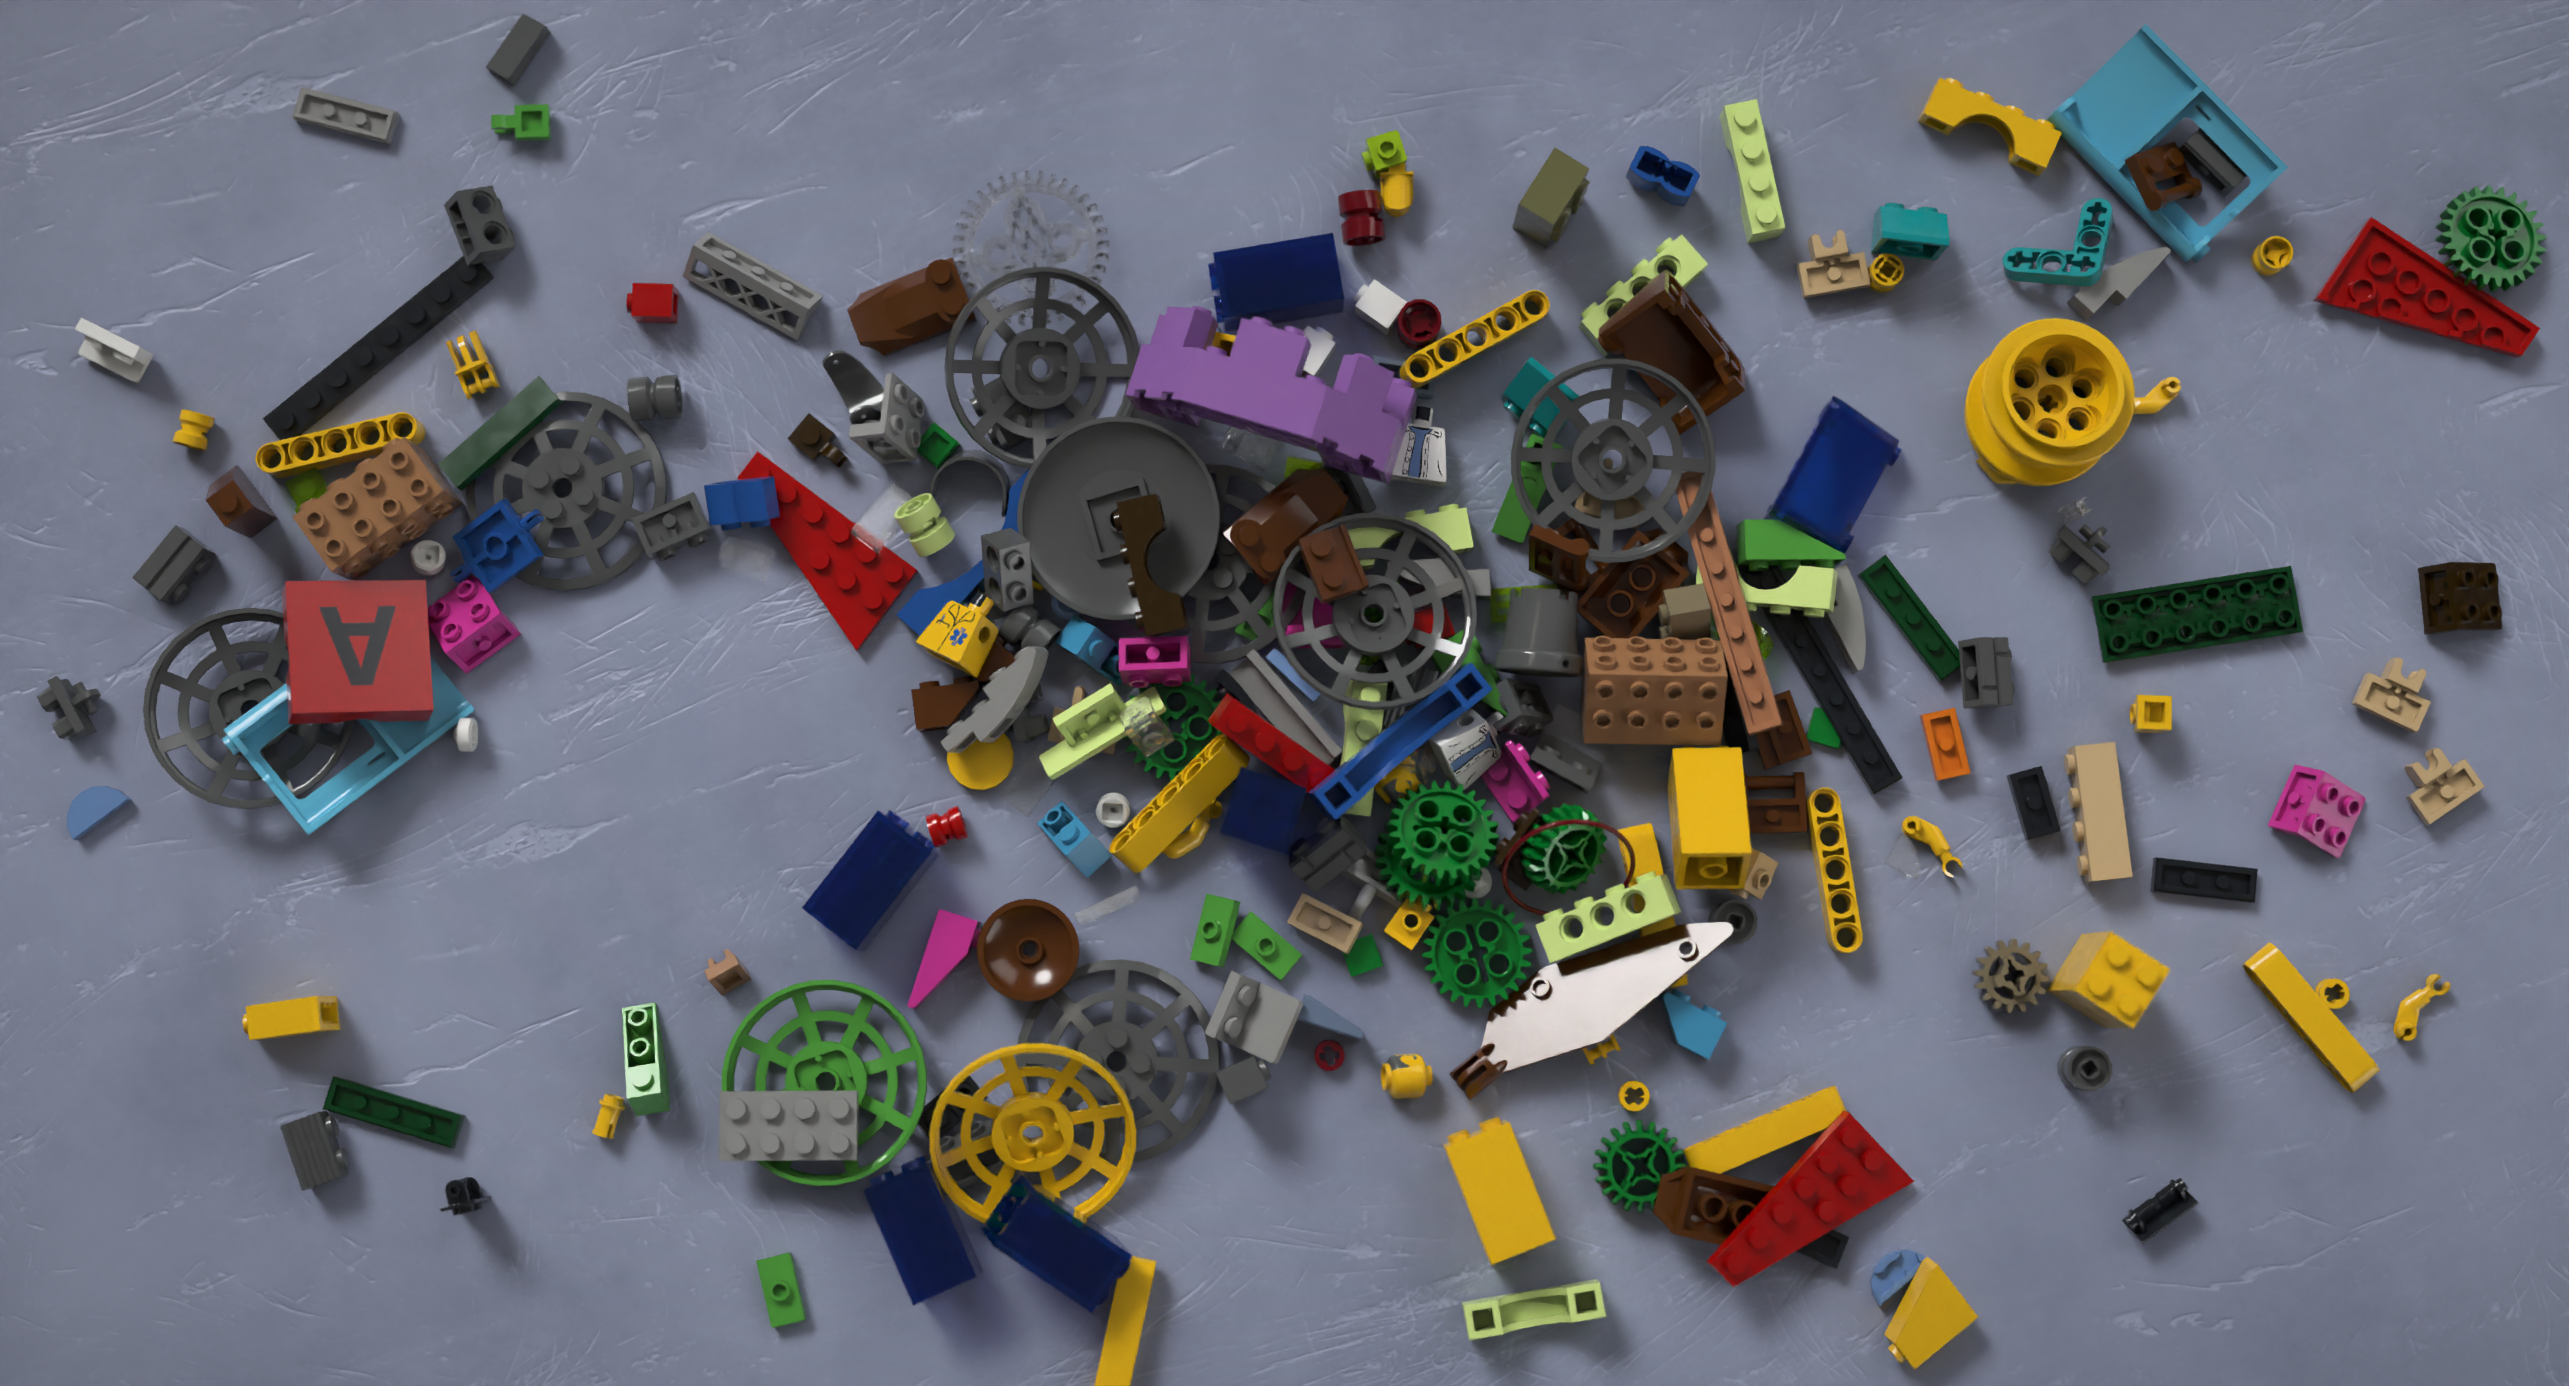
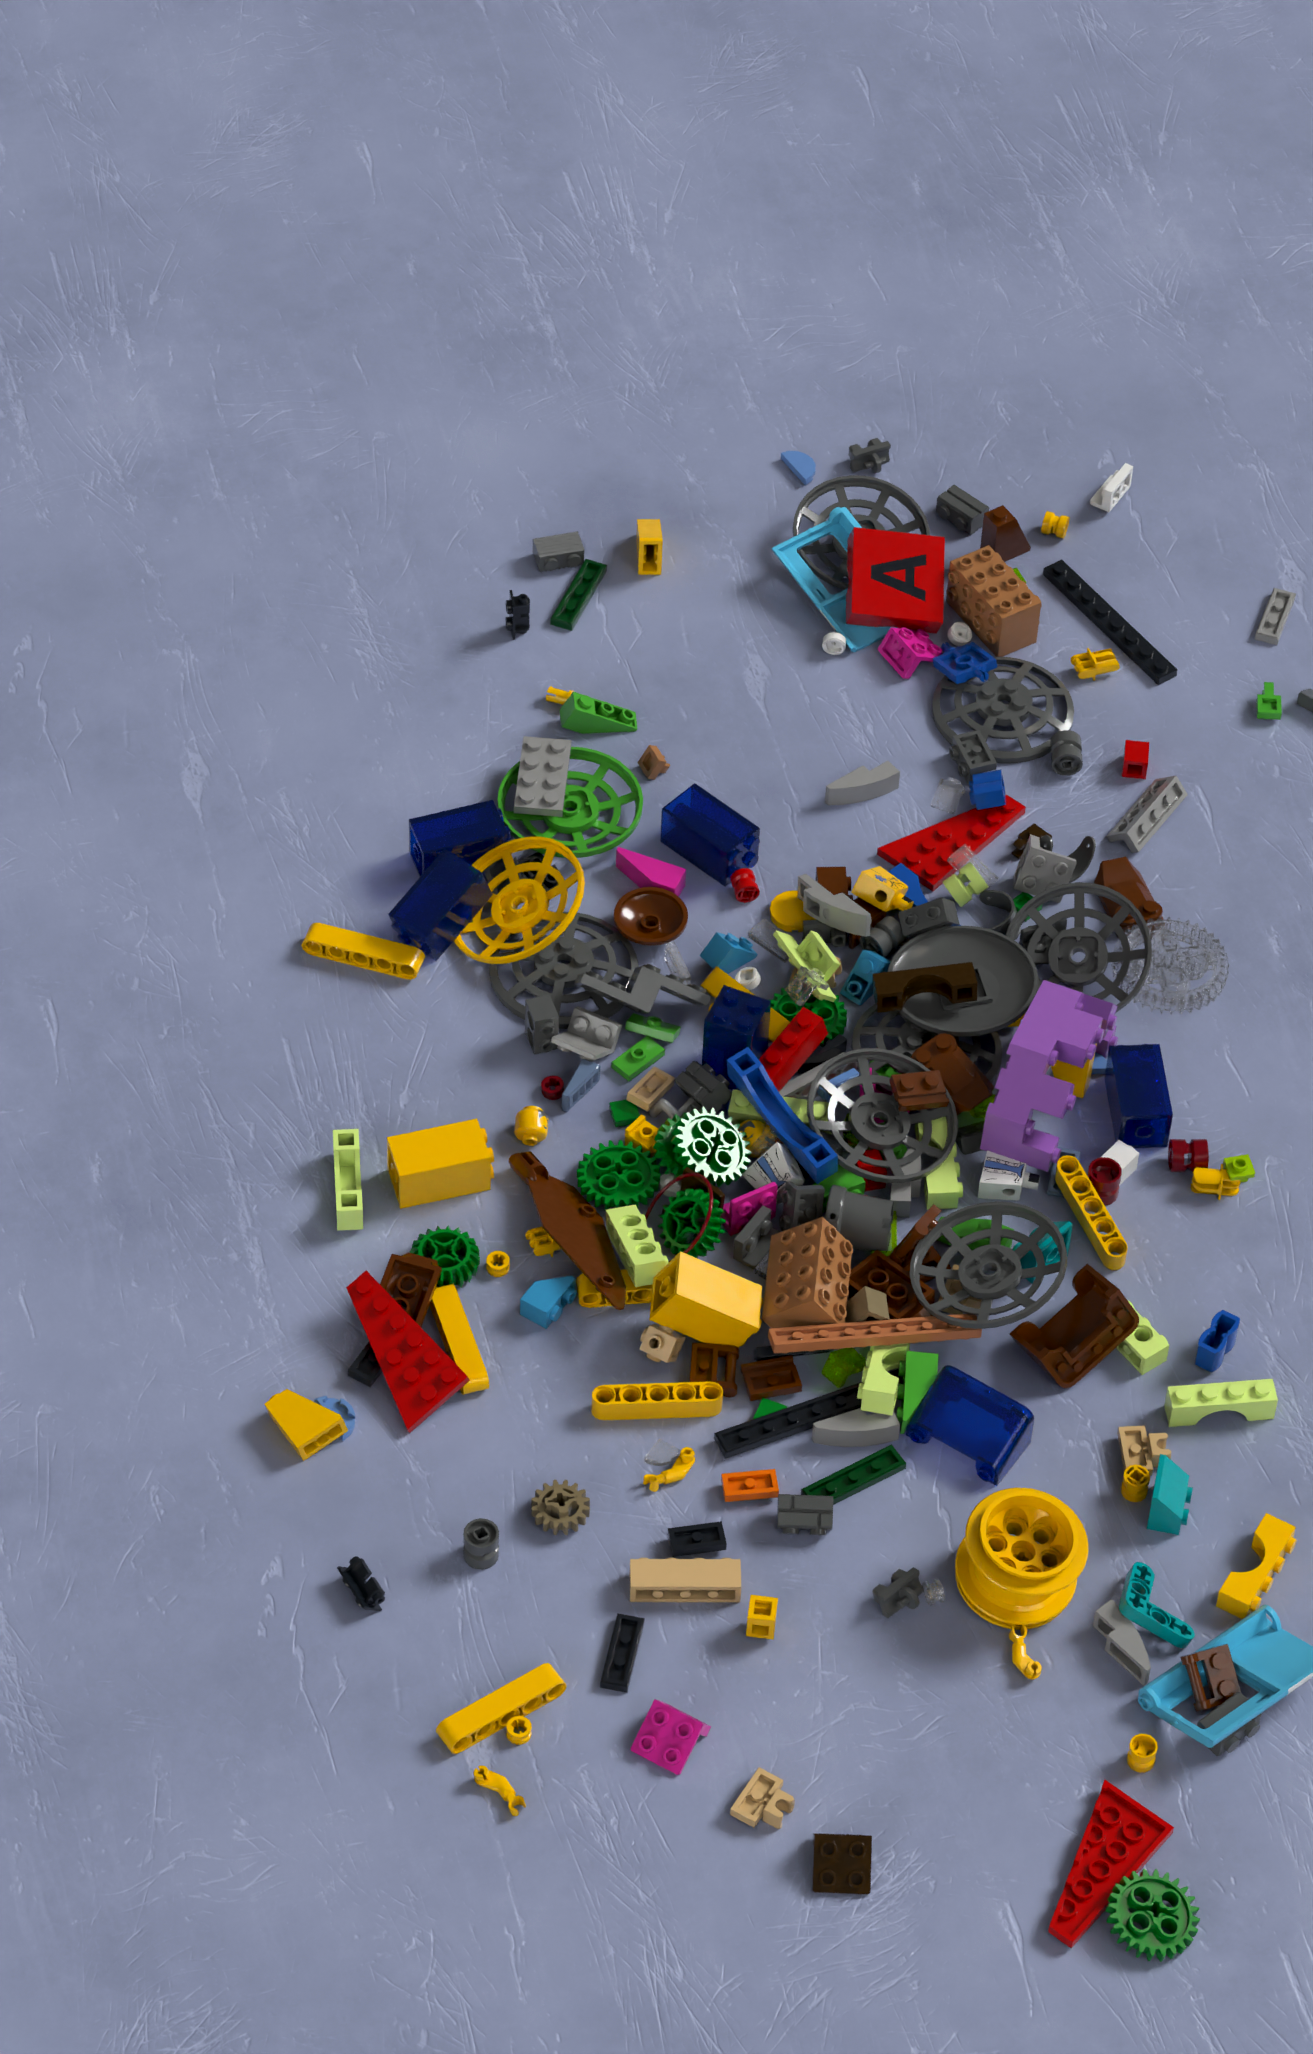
camera: 90 degrees right, 35 degrees down
(325, 440) = (1038, 581): yellow beam -> none
(474, 226) = (1192, 666): dark grey brick -> none
(500, 433) = (1045, 671): dark green tile -> none
(740, 675) = (863, 785): none -> light grey slope
(781, 1289) = (428, 777): bright green plate -> none
(1155, 661) = (854, 994): dark pink brick -> none
(1176, 949) = (643, 988): none -> dark grey bracket
(1320, 351) = (1084, 1119): white brick -> none
(1552, 198) = (1198, 1256): olive brick -> none
(1740, 916) = (623, 1330): dark grey wheel -> none
(2108, 980) = (550, 1543): yellow brick -> none
(2197, 614) = (841, 1670): dark green plate -> none
(2441, 785) = (684, 1825): tan plate -> none

